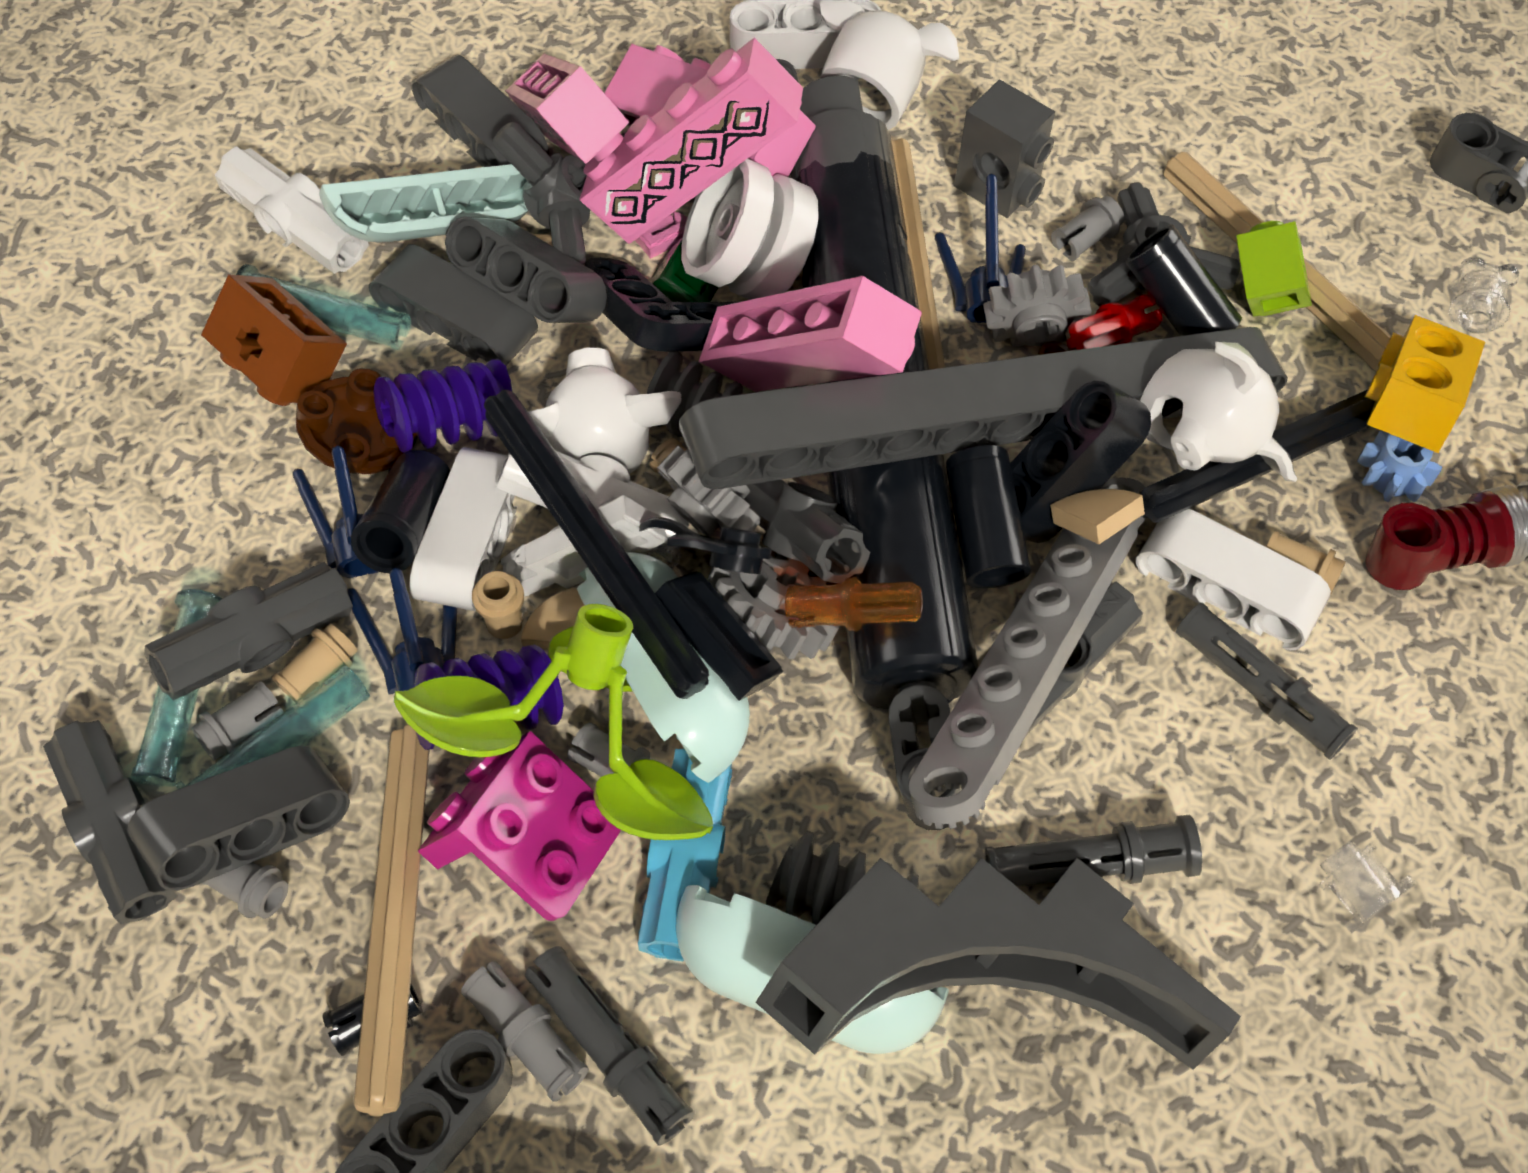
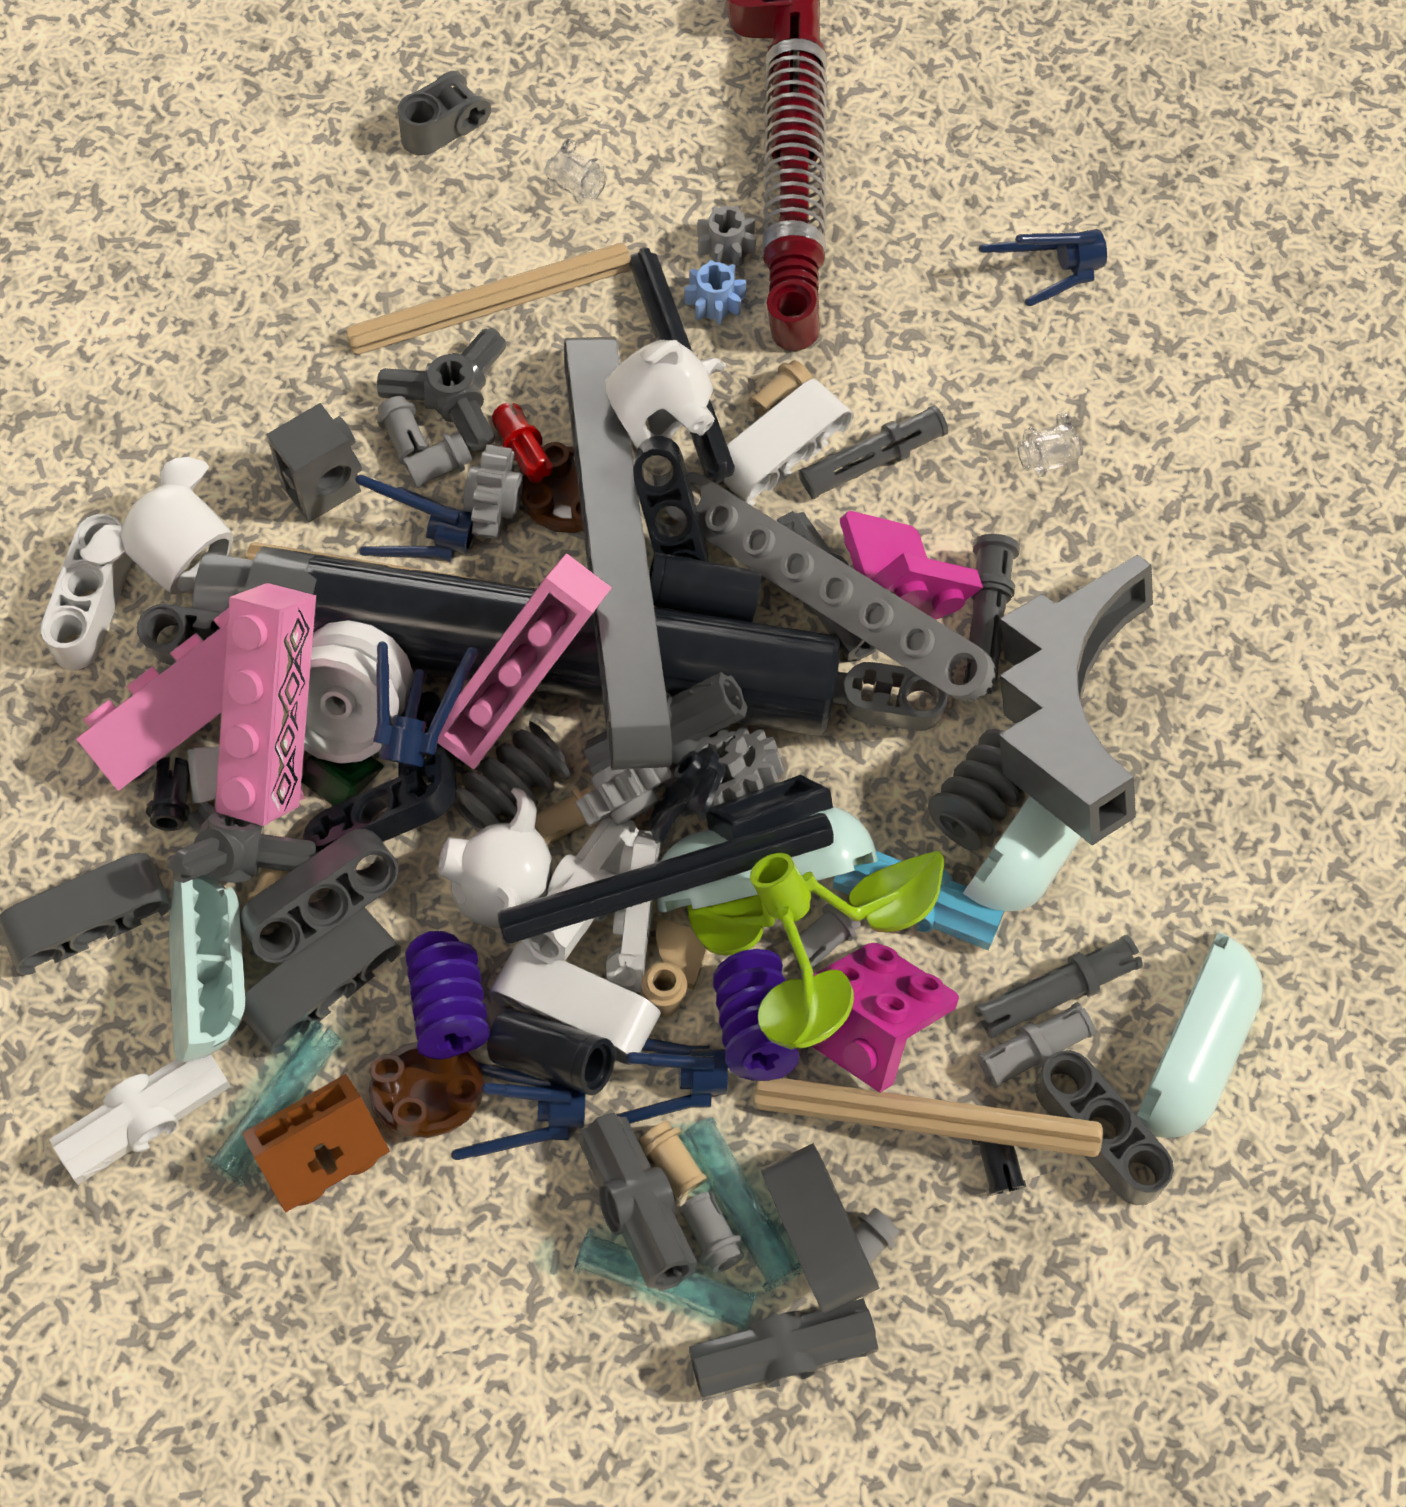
camera: 75 degrees left, 5 degrees up
(569, 108) = (159, 807): bright pink brick -> none
(706, 282) = (406, 737): none -> dark blue plant
(853, 604) = (775, 699): clear orange axle -> none
(1051, 252) = (438, 459): none -> light grey pin
(1098, 512) = (722, 509): tan tile -> none
(1110, 730) = (897, 561): none -> dark pink bracket
(1181, 284) = (511, 377): black pin -> none
(1273, 268) = (507, 304): lime brick -> none
(1423, 382) = (668, 242): yellow brick -> none
(1481, 457) = (726, 235): none -> light grey gear

